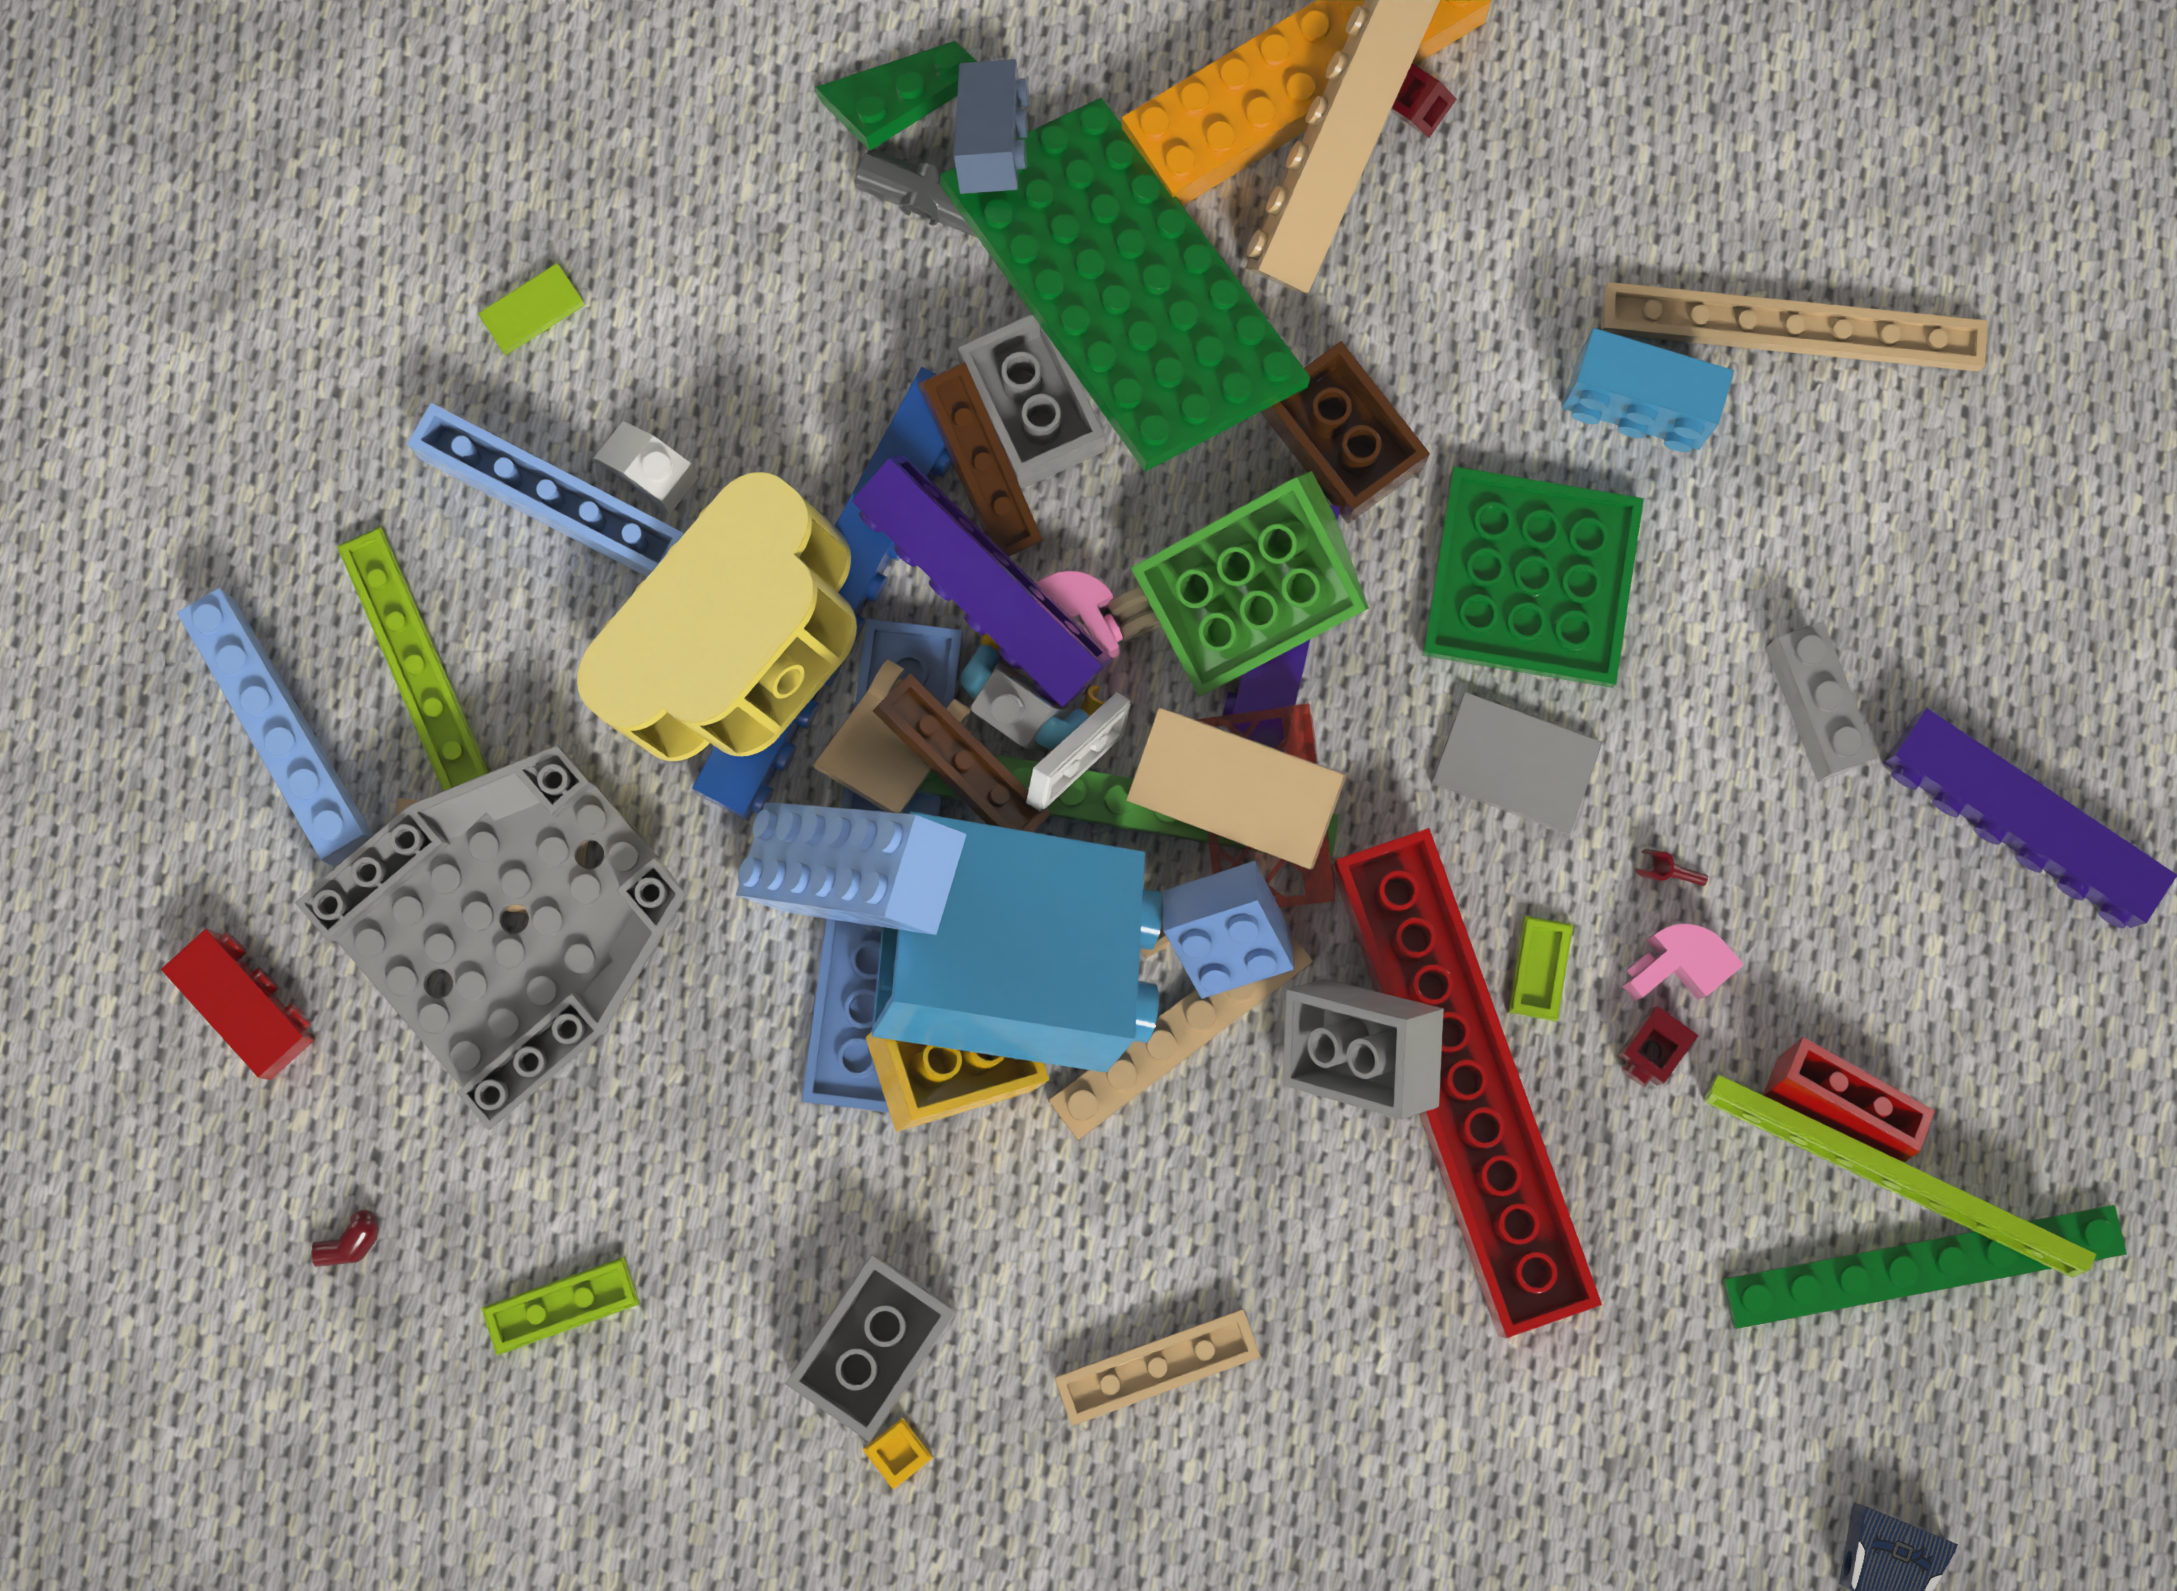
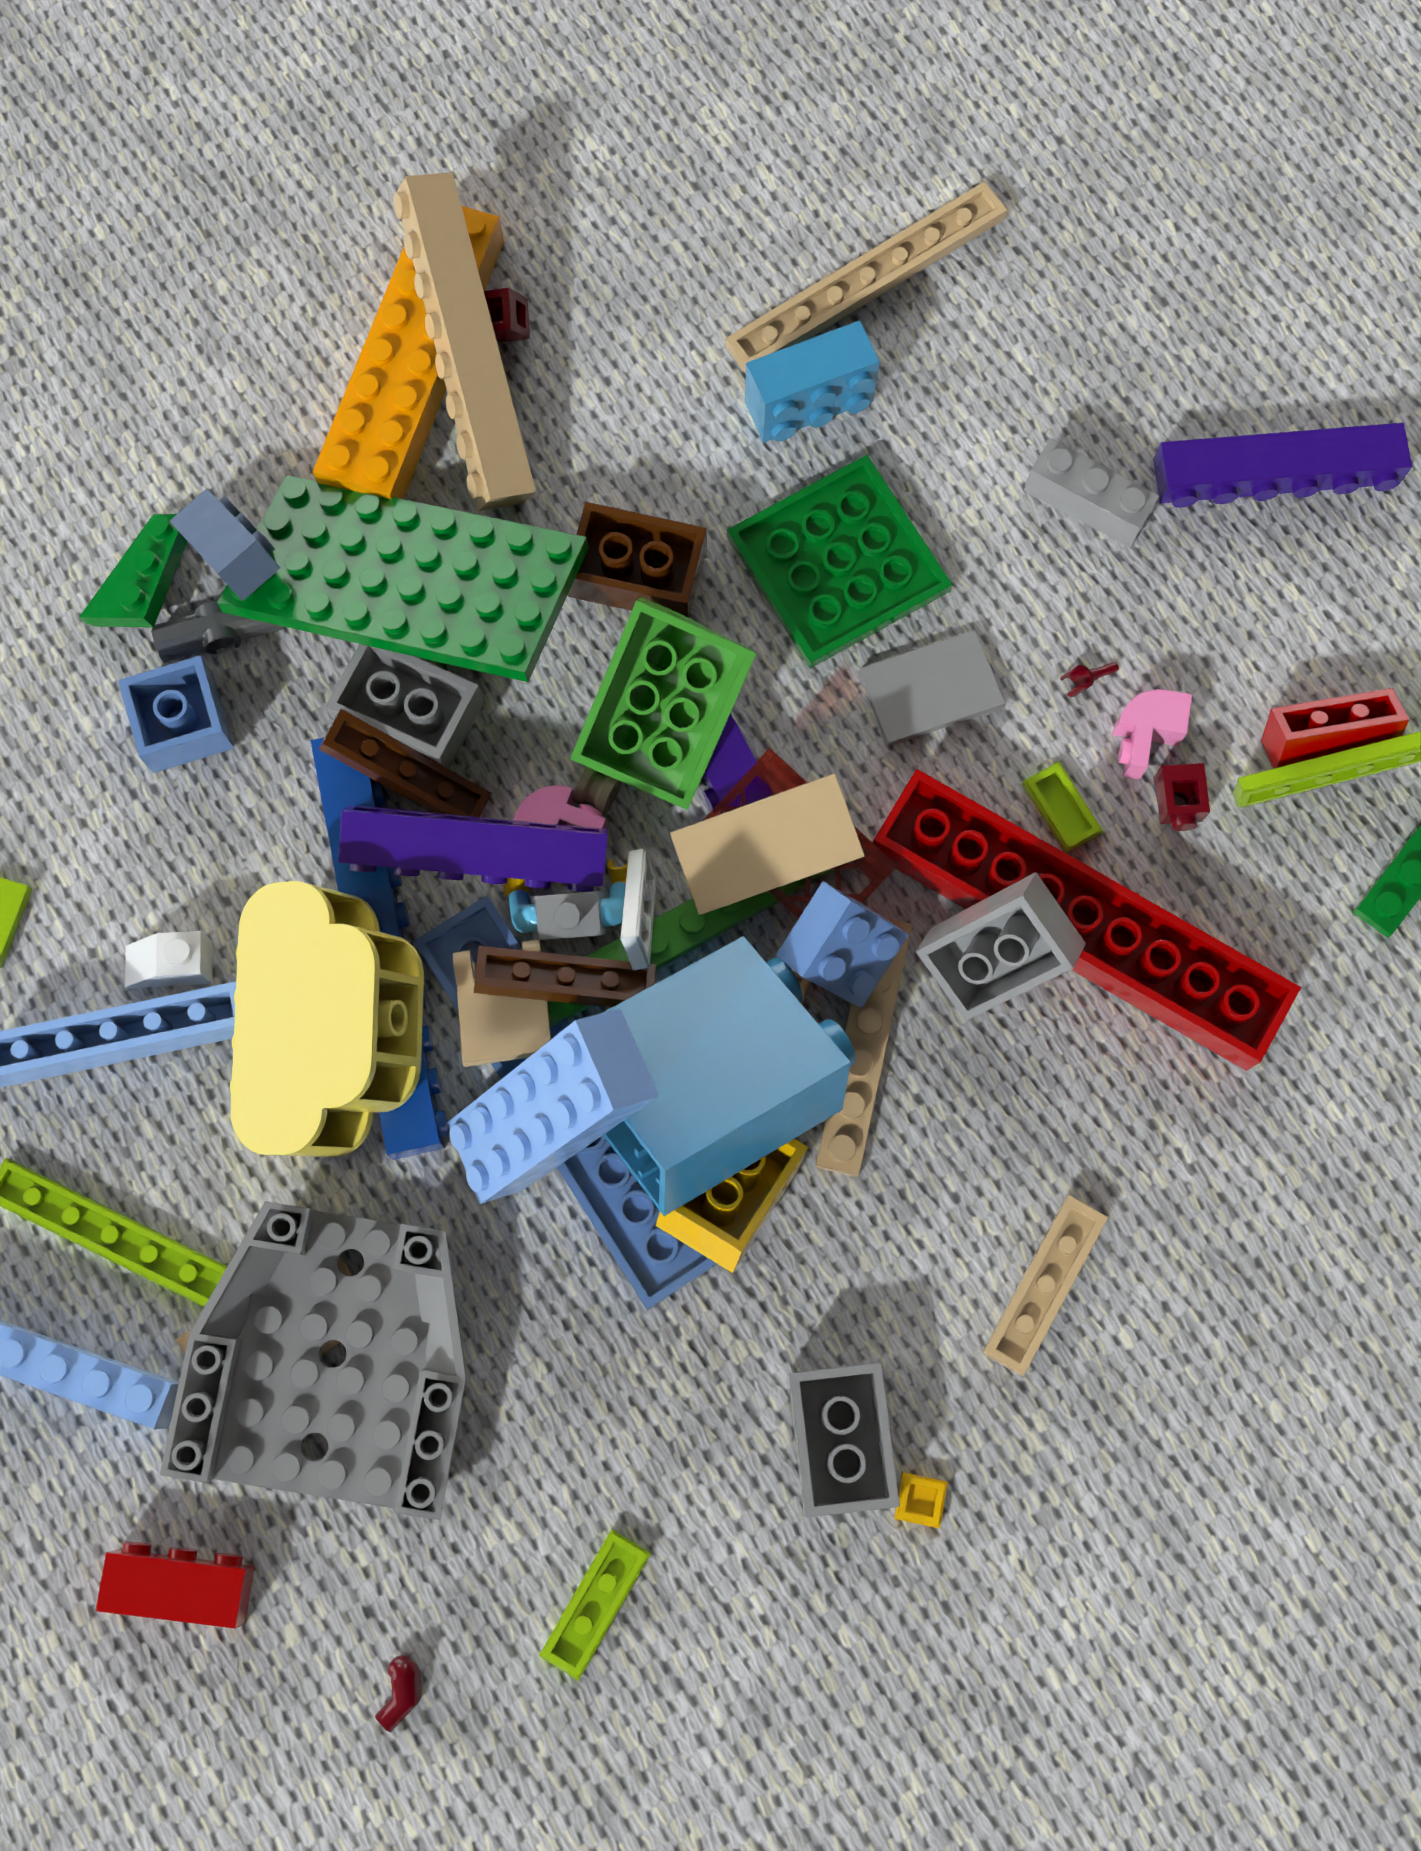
camera: 40 degrees left, 5 degrees down
(826, 248) = (176, 714): none -> medium blue brick

